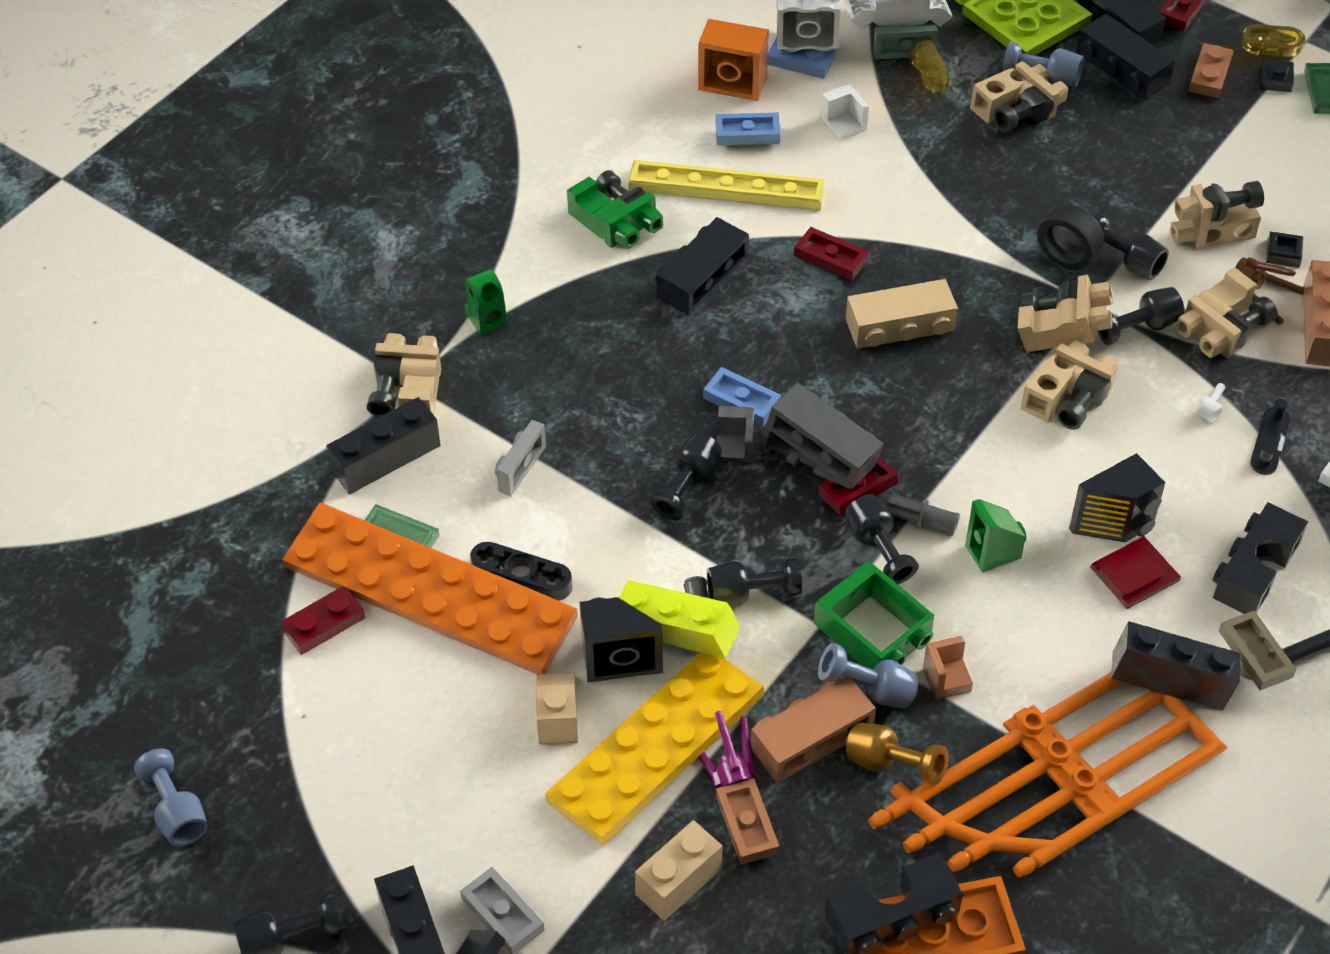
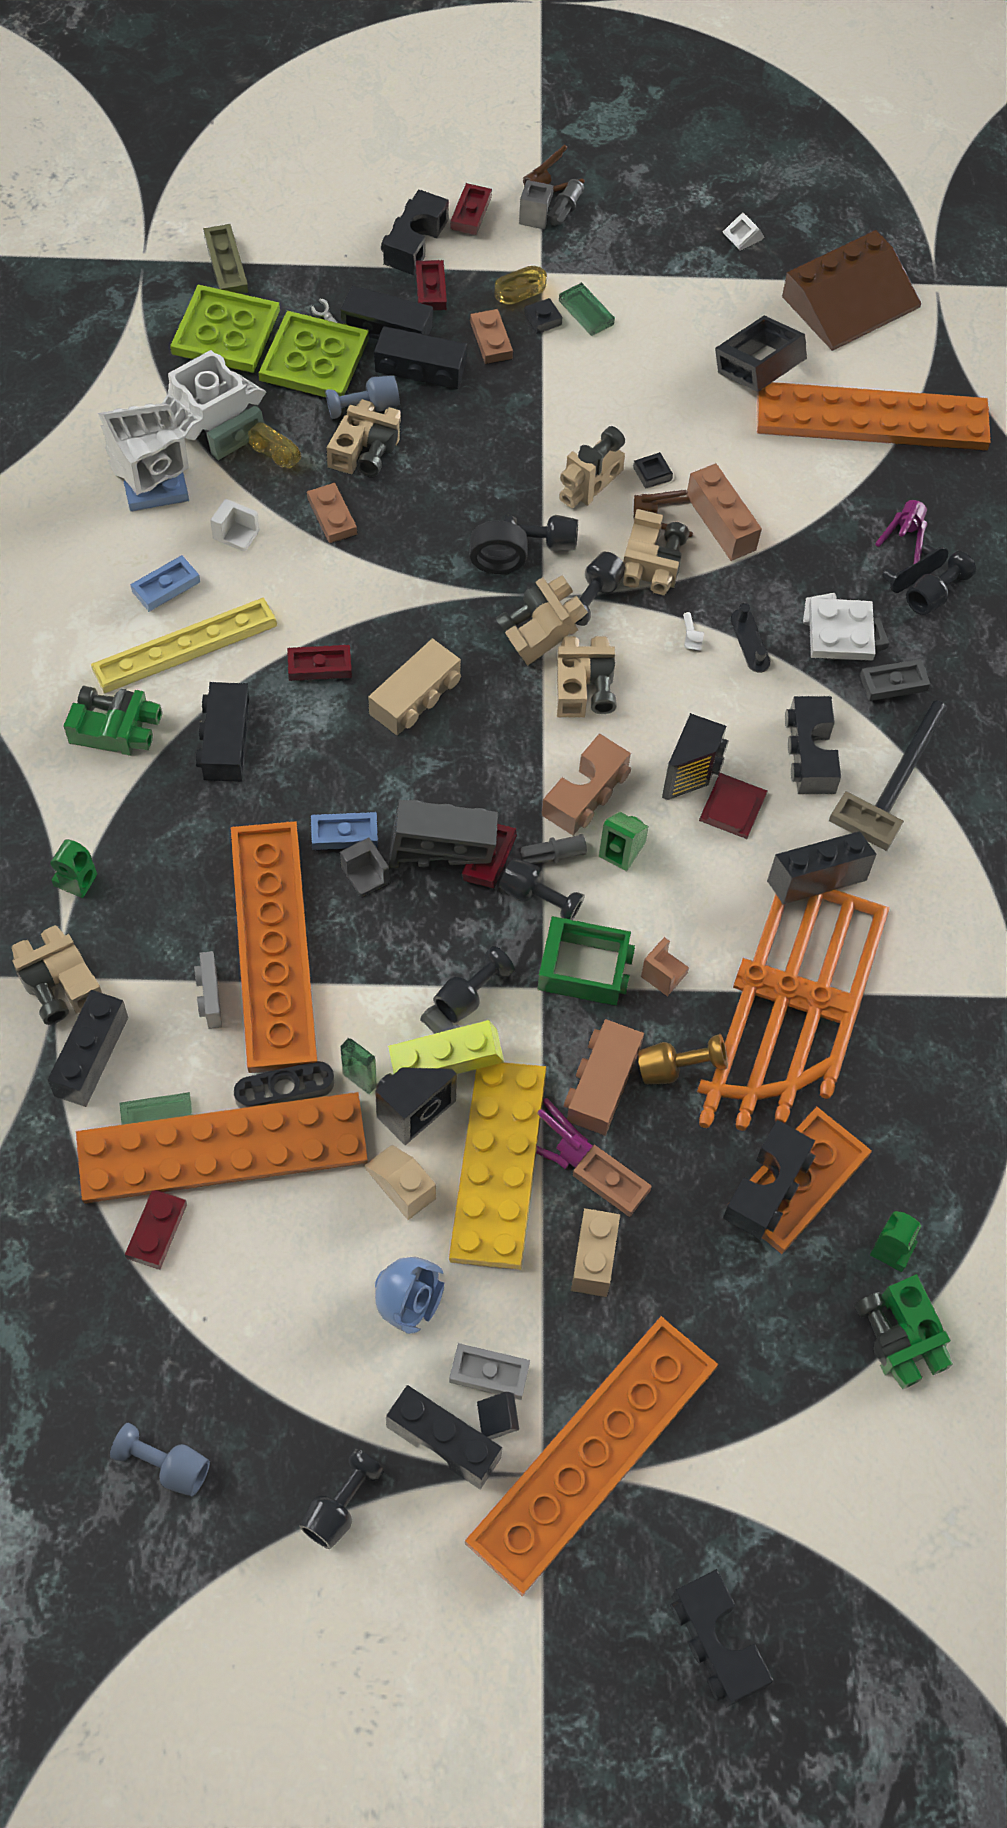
camera: 40 degrees left, 10 degrees up
(483, 797) = (408, 1292): none -> medium blue cylinder
(590, 574) = (358, 1065): none -> clear green tile
(602, 455) = (273, 947): none -> orange plate
(696, 462) = (353, 909): black piece -> none
(732, 59) = (111, 525): orange brick -> none
(888, 682) = (632, 1007): sand blue piece -> none
(942, 144) = (332, 512): none -> nougat plate
(1027, 472) = (573, 804): none -> nougat arch

